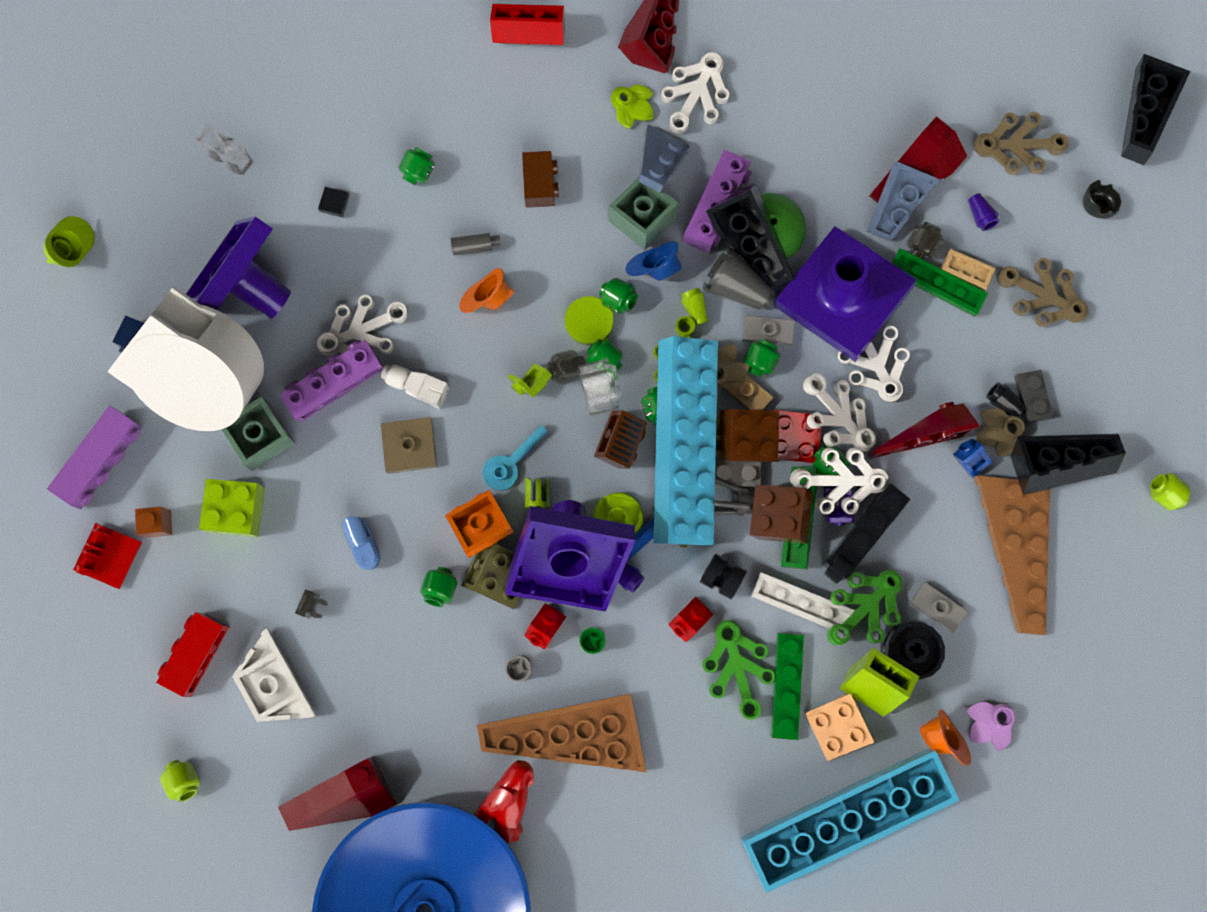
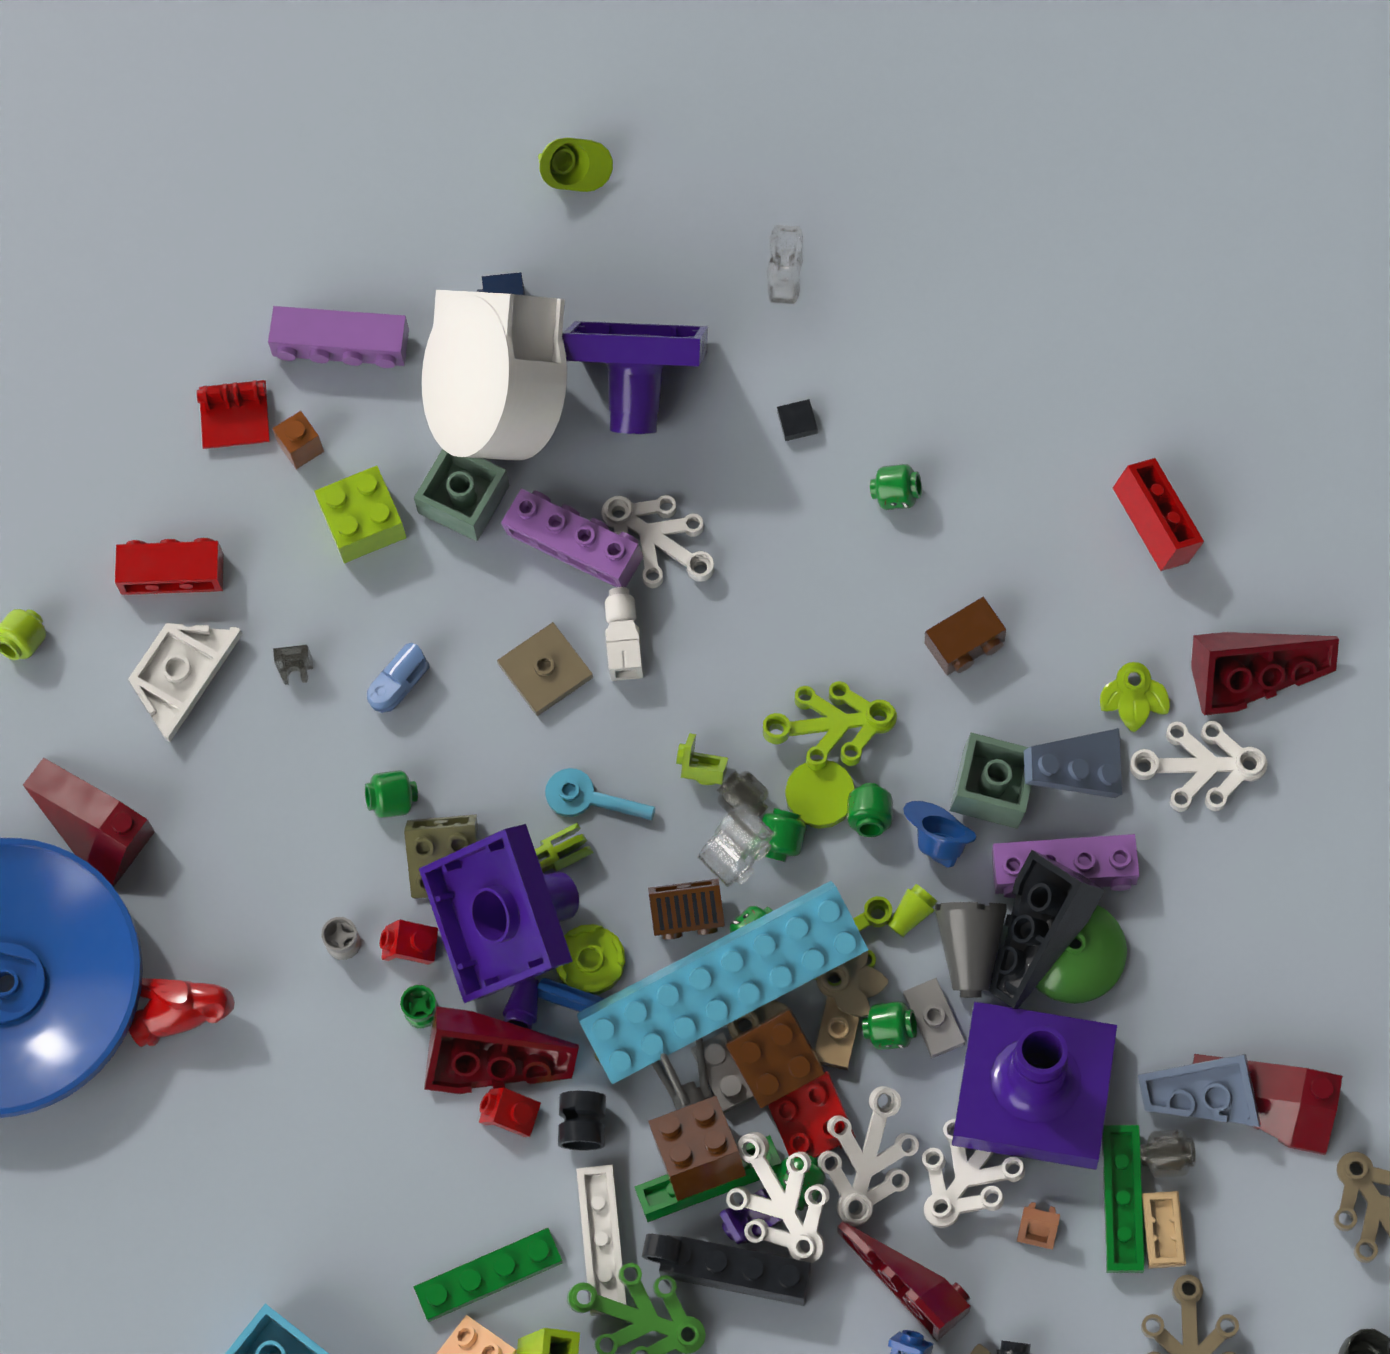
camera: 70 degrees right, 10 degrees down
(474, 243) = (838, 606): dark grey cylinder -> none
(478, 523) = (490, 795): orange plate -> none
(487, 293) = (782, 655): orange piece -> none
(549, 286) = (834, 722): none -> lime plant
(583, 733) = (303, 1057): medium nougat wing -> none
(640, 618) = (483, 1051): none -> dark red wedge
(737, 664) = (482, 1198): bright green plant -> none
(930, 339) = (1038, 1226): none -> nougat tile
(983, 213) = (1255, 1211): dark purple cone -> none

